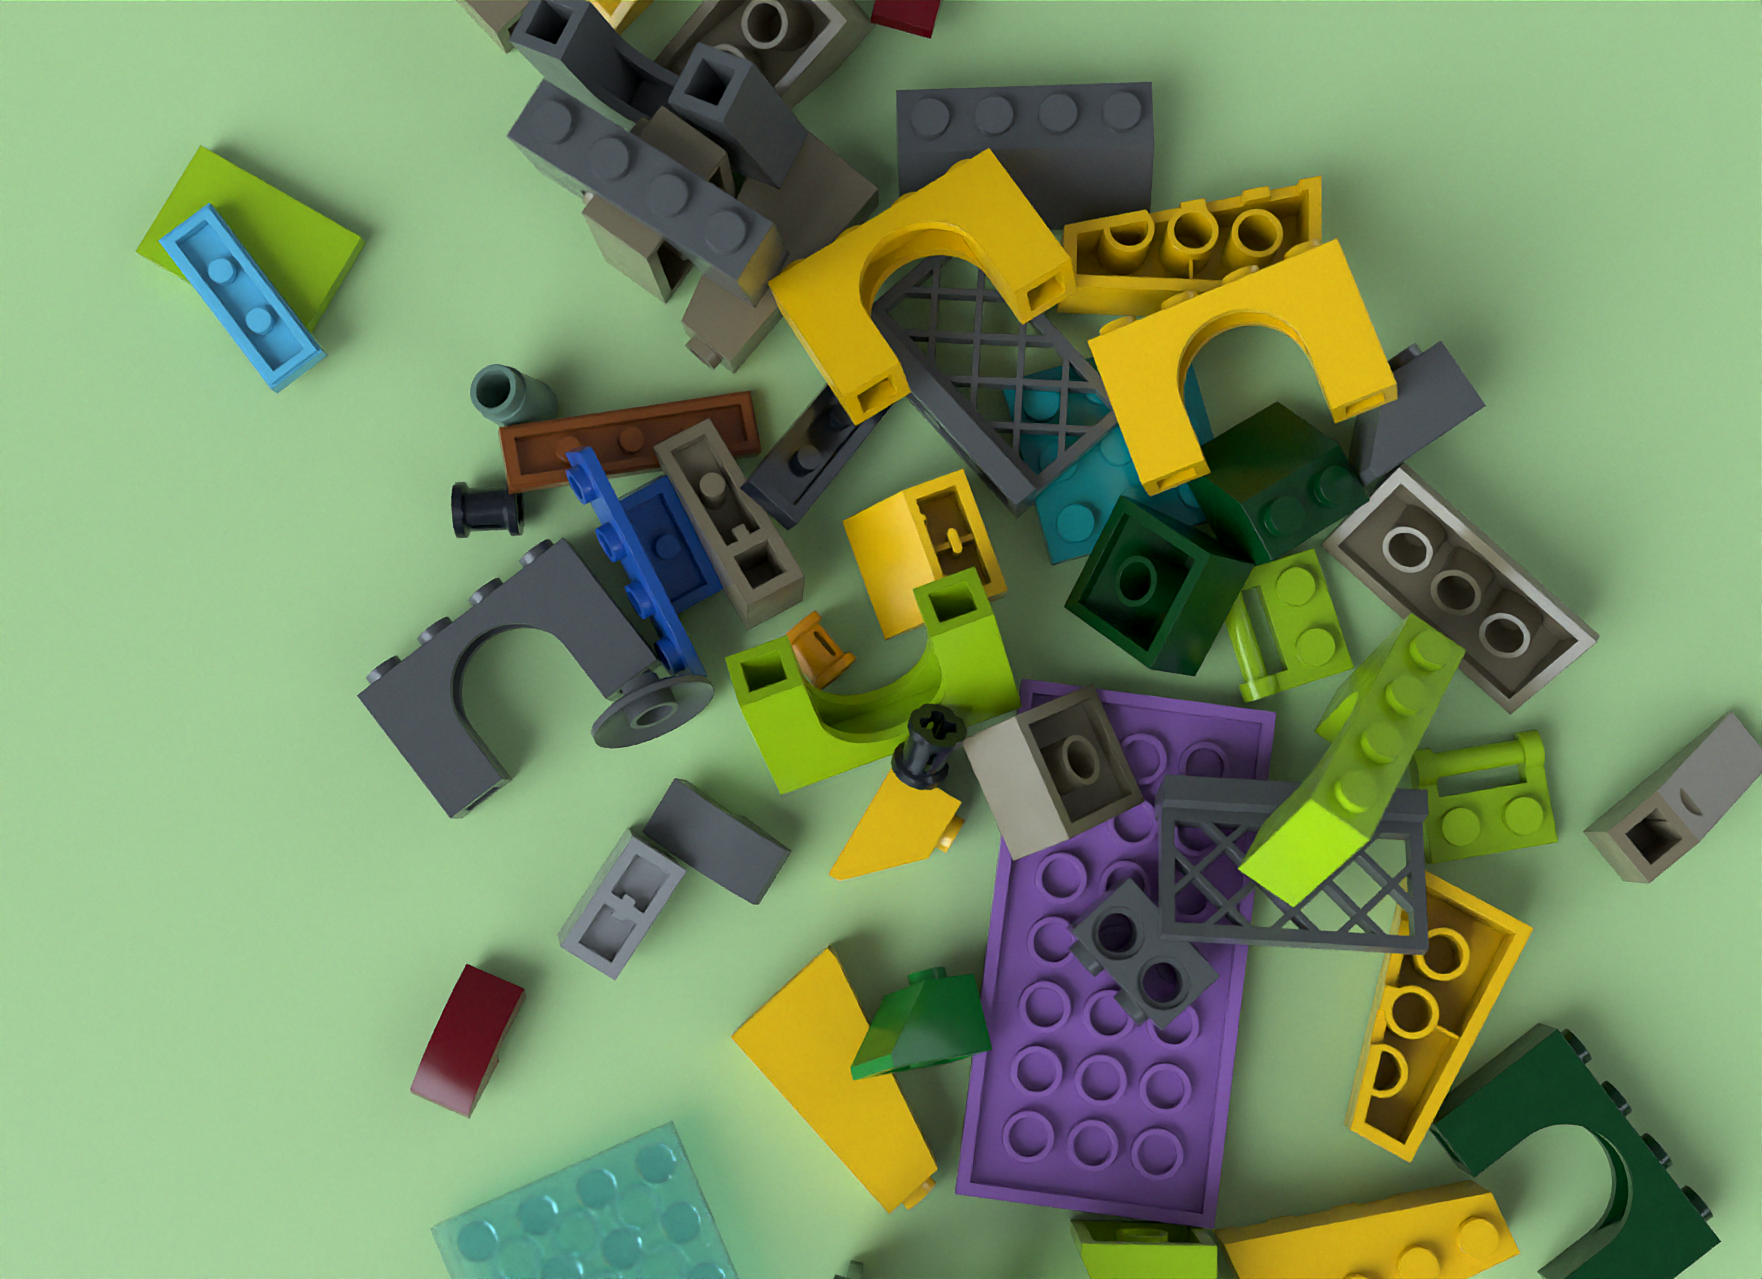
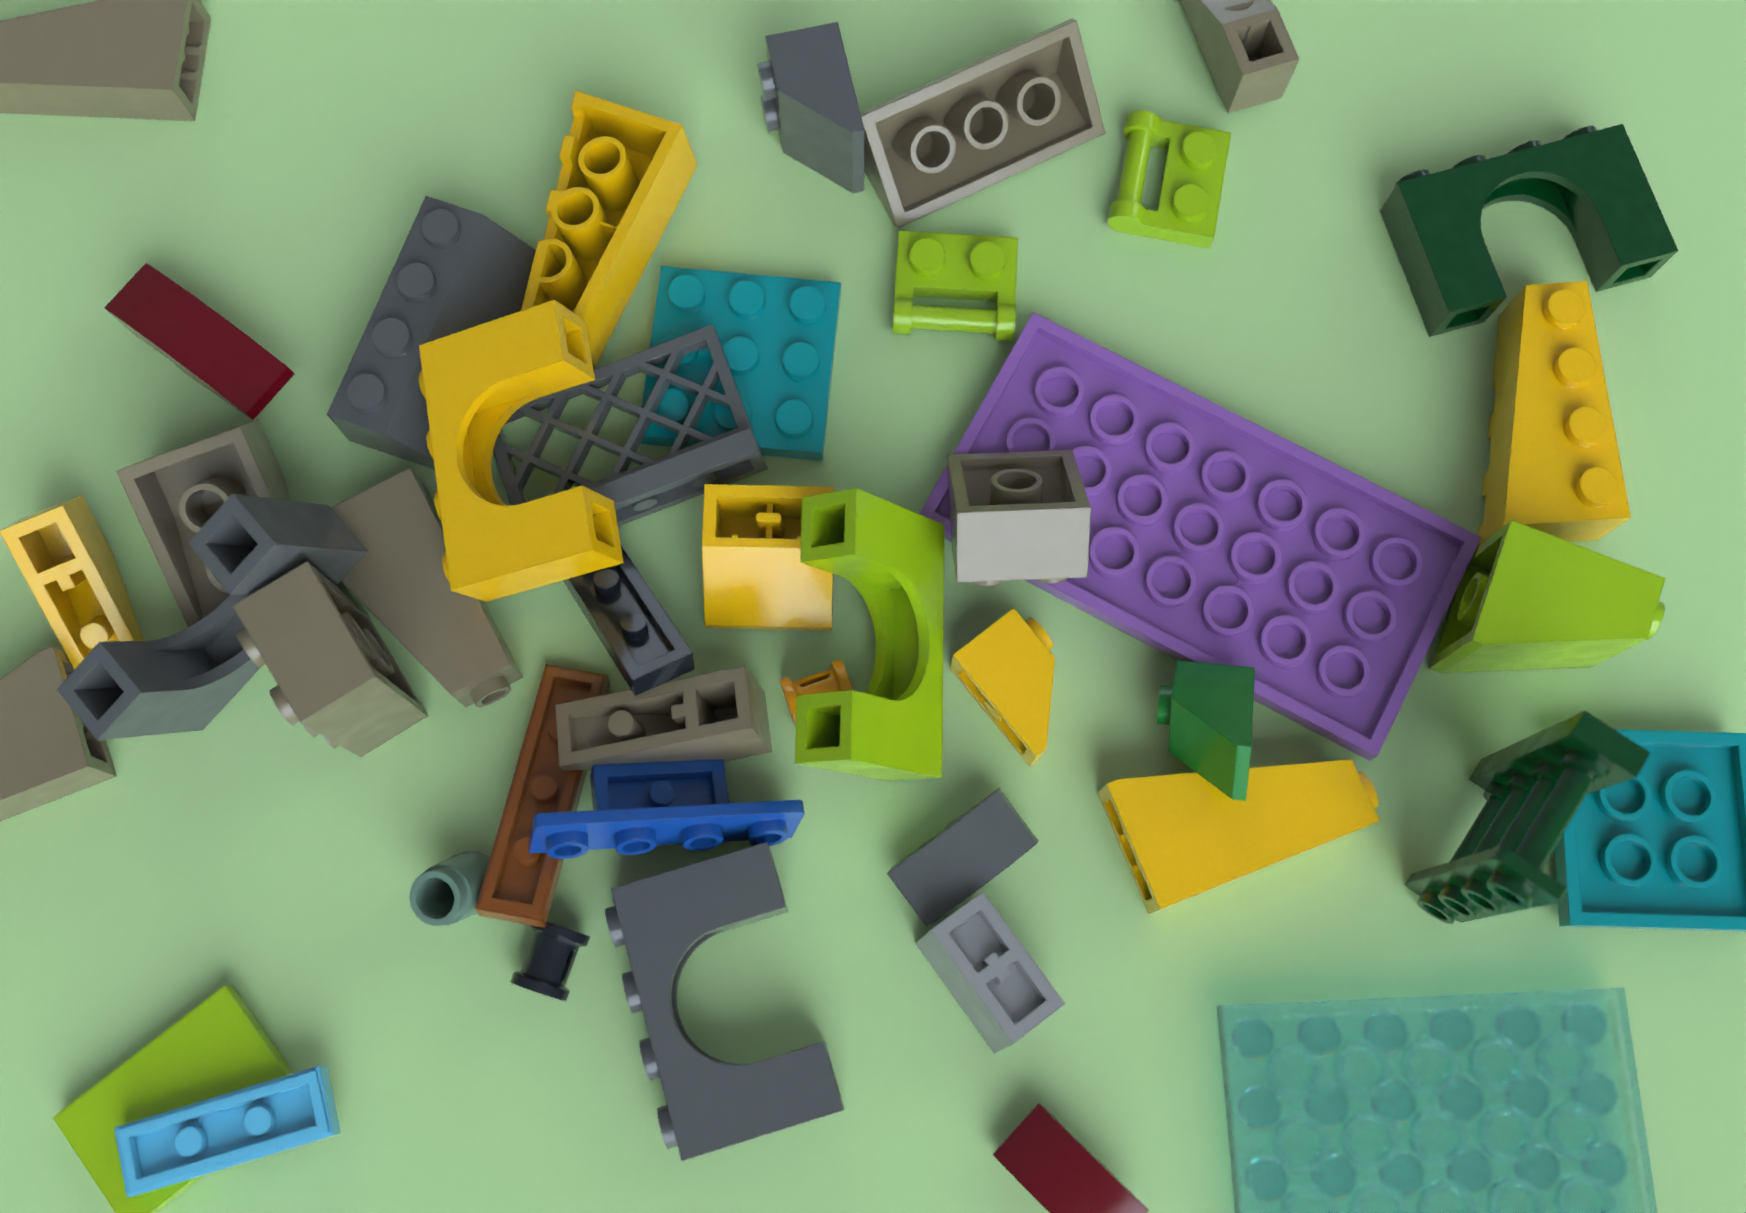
camera: 70 degrees left, 10 degrees down
(651, 709) = (811, 866): dark grey dish -> none
(697, 218) = (234, 699): dark grey arch -> none
(928, 746) = (951, 614): black bush -> none
(1142, 951) = (1204, 487): dark grey brick -> none
(1158, 587) = (881, 366): dark green slope -> none
(1244, 807) = (1125, 333): dark grey fence -> none
(1274, 484) = (831, 237): dark green slope -> none
(1304, 297) = (680, 125): yellow arch -> none
(1373, 735) = (1088, 209): lime arch -> none
(1429, 1014) = (1343, 282): yellow wedge -> none

